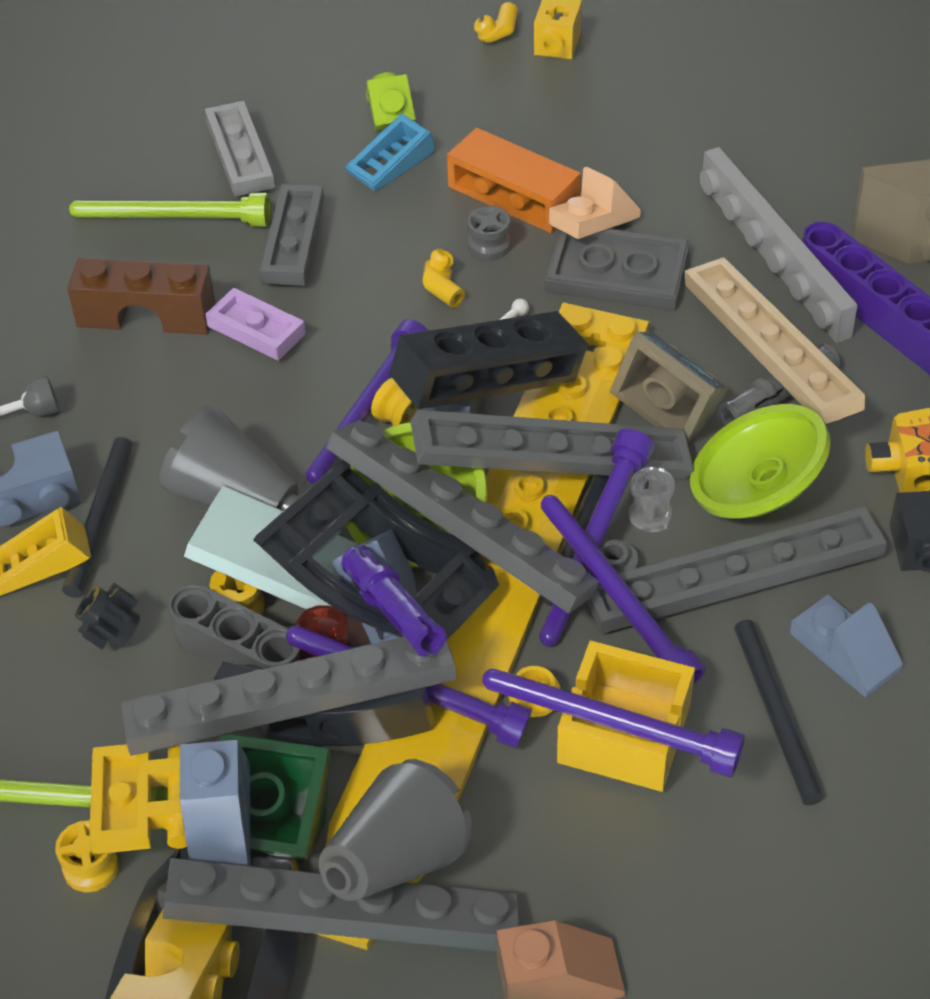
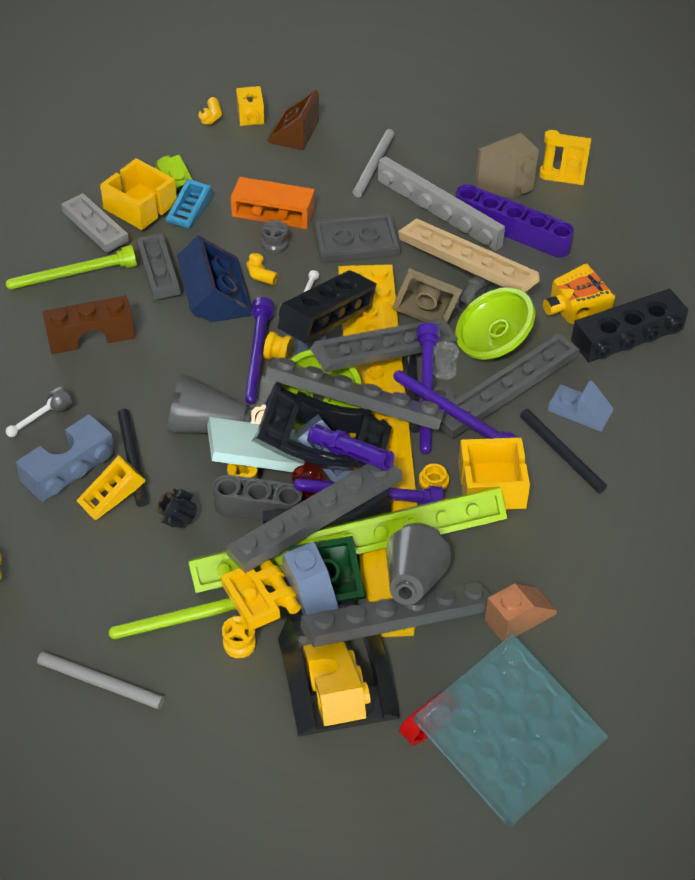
camera: 25 degrees left, 0 degrees up
(256, 324) = (165, 323): lavender plate -> none
(333, 124) = (143, 195): none -> yellow piece
(359, 278) = (213, 282): none -> dark blue slope
(361, 751) = (374, 531): none -> lime plate
(599, 207) = (331, 208): light nougat slope -> none
(618, 69) = (297, 123): none -> reddish brown slope
(695, 163) = (373, 163): none -> light grey bar
(716, 749) = (555, 473): dark purple piece -> none

